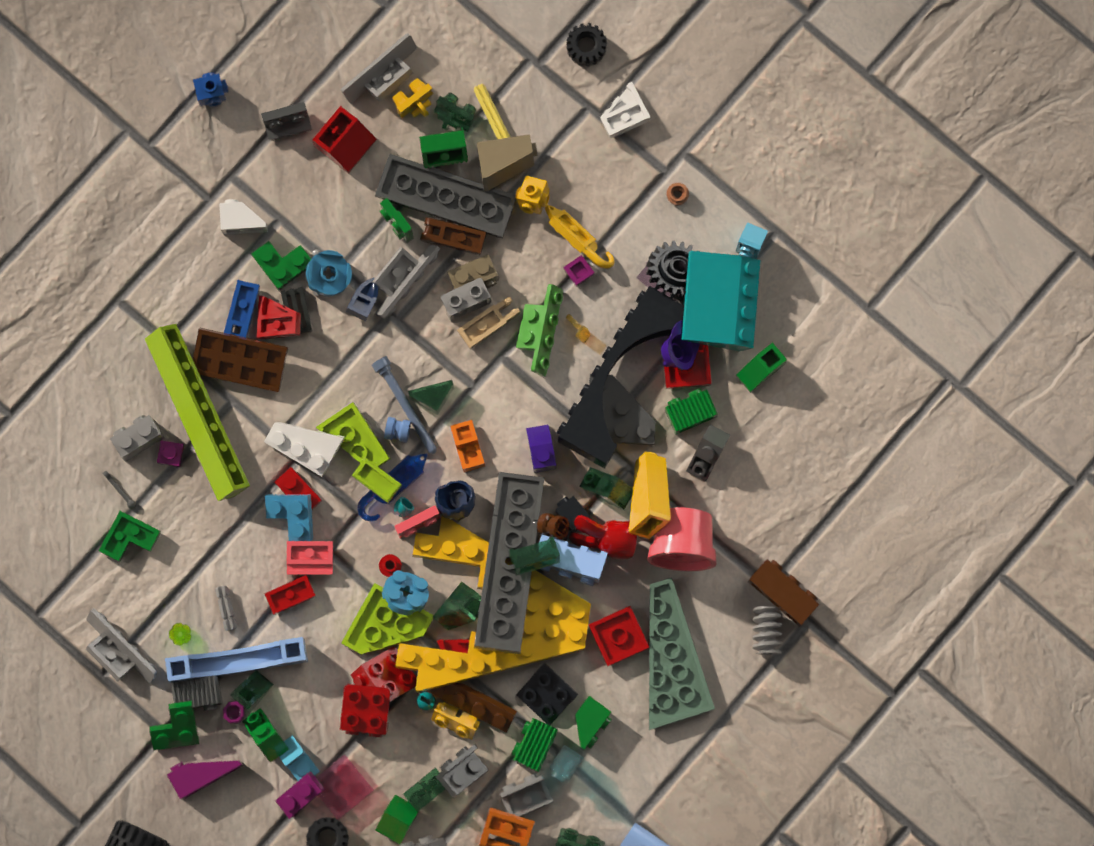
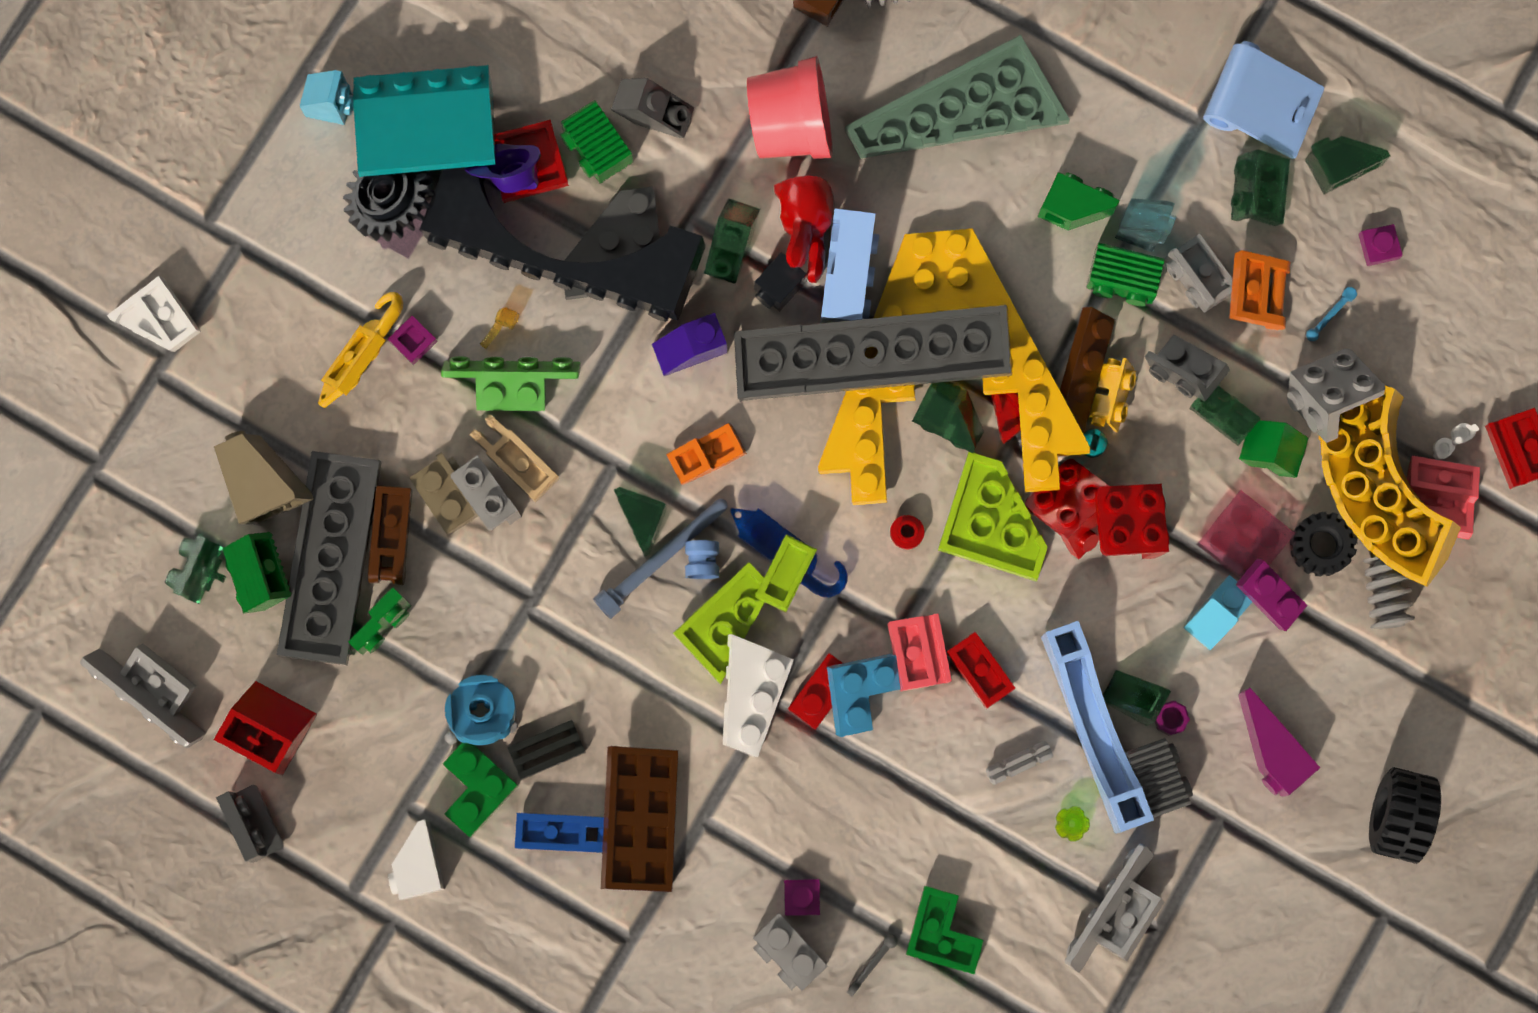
camera: 105 degrees left, 0 degrees up
(180, 732) = (1219, 790): green plate -> none
(197, 412) = (732, 867): lime brick -> none
(210, 89) = (229, 957): blue brick -> none
(265, 735) = (1195, 664): green slope -> none
(276, 320) = (567, 774): red wing -> none
(363, 300) = (512, 649): dark blue plate -> none
(399, 275) = (465, 600): light grey bracket -> none
(403, 506) = (815, 529): teal hinge -> none
(408, 582) = (930, 489): dark azure plate -> none
(421, 93) = (170, 626): yellow hips -> none
(422, 519) = (846, 511): coral plate -> none
(455, 500) = (793, 452): dark blue hair -> none
(491, 112) = (187, 515): light yellow axle -> none
(533, 195) = (308, 425): yellow brick -> none
(534, 556) = (857, 314): clear green hinge -> none
(547, 694) = (1048, 271): black hinge -> none
(553, 525) = (805, 301): reddish brown wheel -> none
(586, 57) = (43, 378): black tyre -> none
(618, 636) = (943, 186): red plate -> none
(649, 496) = (736, 167): yellow slope -> none
(677, 187) = (265, 211): nougat plate -> none
(761, 367) = (512, 51): green slope -> none

